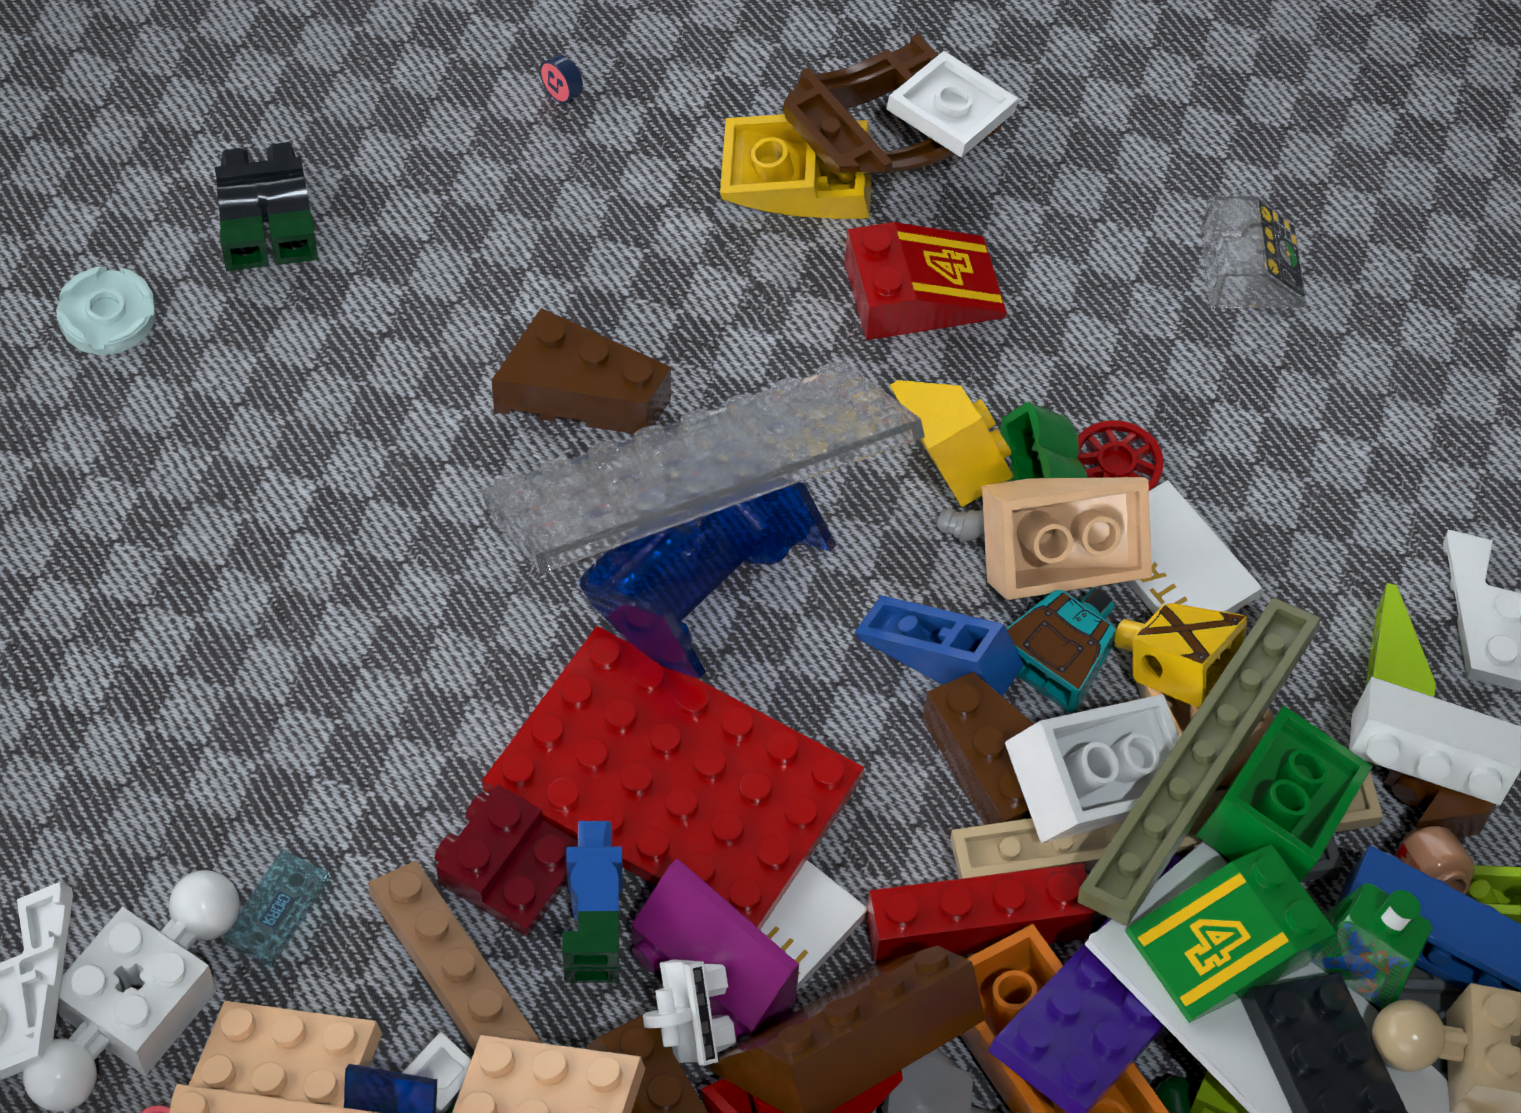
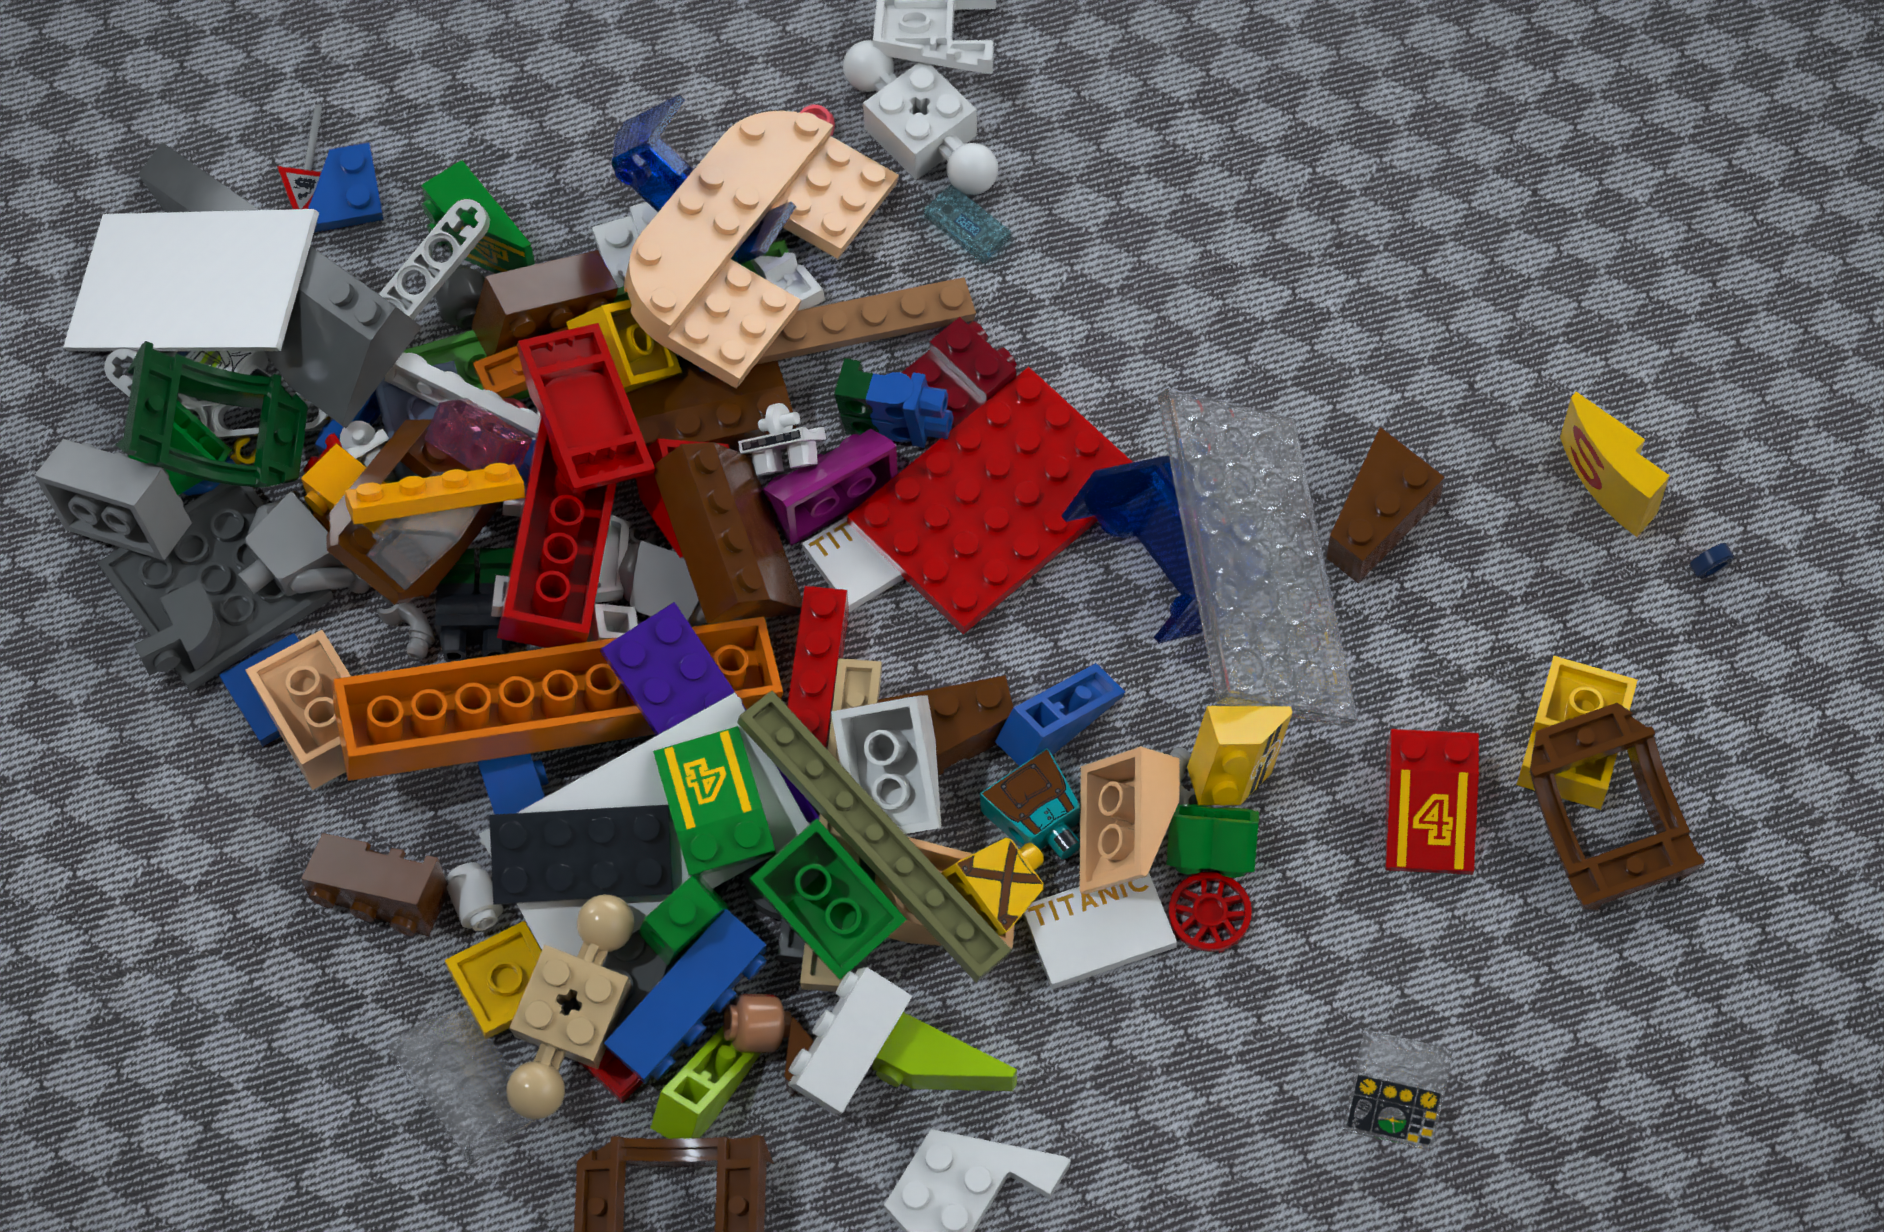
camera: 110 degrees right, 5 degrees up
(106, 310) = (1534, 189): light aqua tile -> none
(260, 192) = (1610, 309): hips -> none
(479, 164) = (1611, 464): none -> yellow slope
(952, 104) = (1604, 858): white plate -> none

